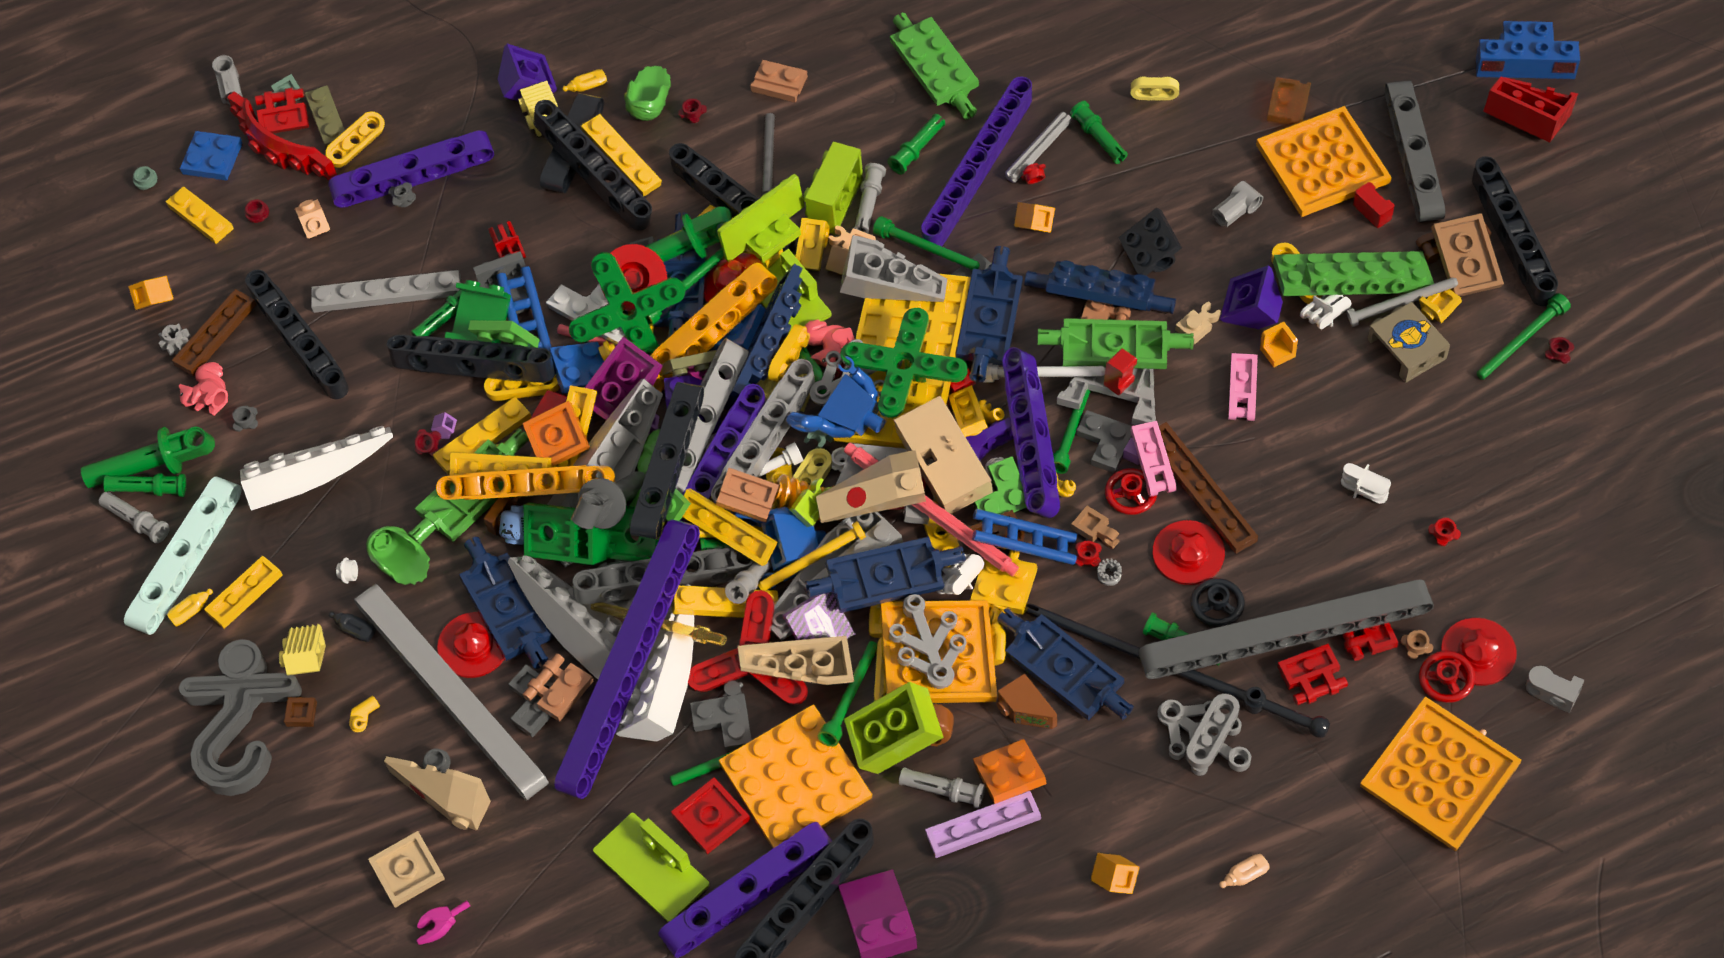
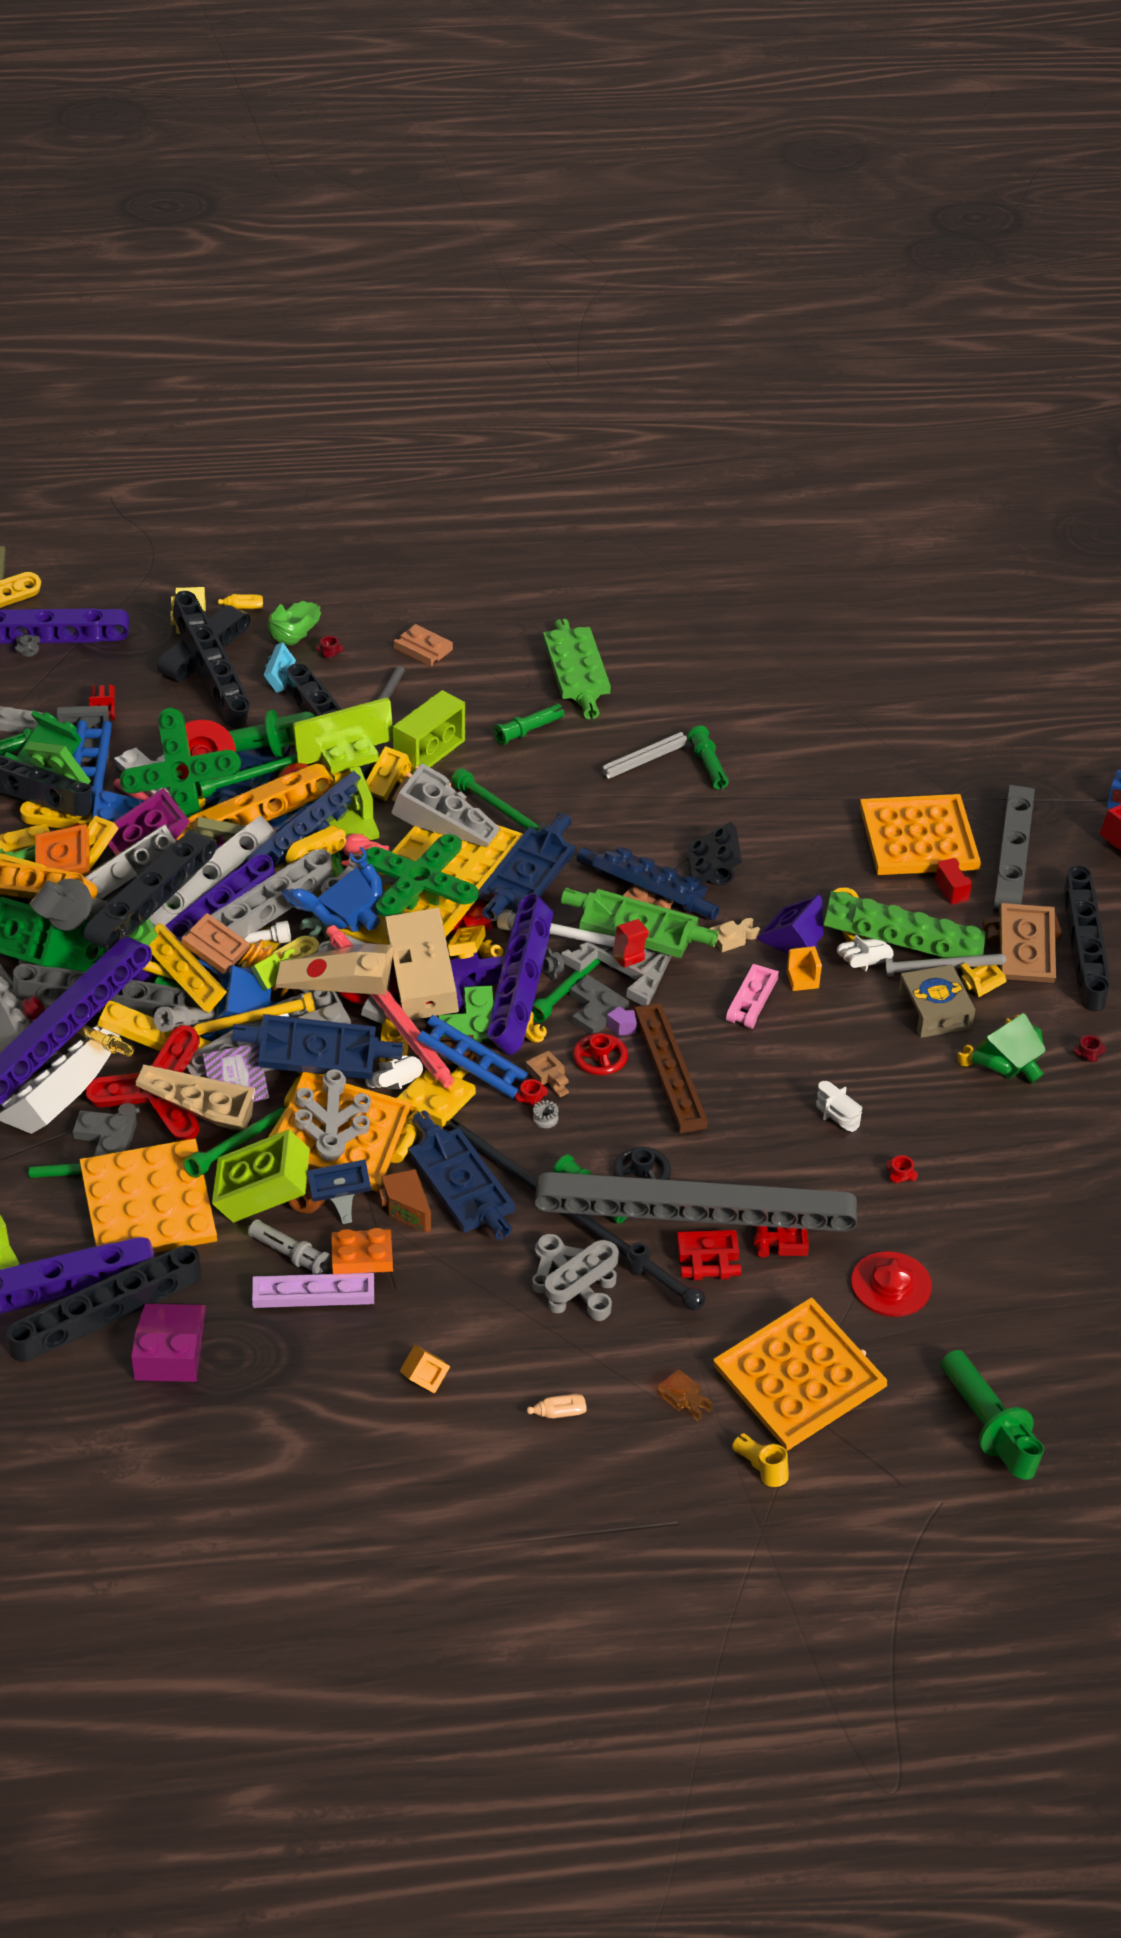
camera: 10 degrees right, 15 degrees down
(522, 69) = (187, 572): dark purple slope -> none
(605, 614) = (32, 1008): none -> dark red plate
(621, 154) = (244, 662): yellow plate -> none
(656, 150) = (277, 667): none -> medium azure plate
(710, 815) = (50, 1208): red plate -> none
(870, 189) = (465, 748): light grey pin -> none
(967, 714) = (340, 1185): none -> dark blue piece
(977, 161) = (579, 750): dark purple beam -> none
(1033, 173) = (629, 773): red plate -> none
(1034, 217) = (613, 806): light orange panel -> none
(1053, 408) = (552, 964): none -> dark grey plate
(1153, 458) = (631, 1025): bright pink plate -> none
(1154, 88) = (779, 736): light yellow plate -> none
(1188, 552) = (633, 1120): red hat -> none
(1241, 200) = (823, 844): light grey piece -> none
(1288, 101) = (907, 778): clear orange plate -> none
(1344, 821) = (684, 1392): none -> clear orange plate
(1420, 637) = (829, 1257): medium nougat plate -> none
(1440, 867) = (769, 1460): none -> yellow pin
(1447, 666) = (846, 1287): red piece -> none
(1494, 376) = (1009, 1050): none -> torso
(1553, 689) = (953, 1333): light grey leg -> none
(1557, 306) = (1103, 1010): green piece -> none
(1639, 777) = (1005, 1430): none -> green piece

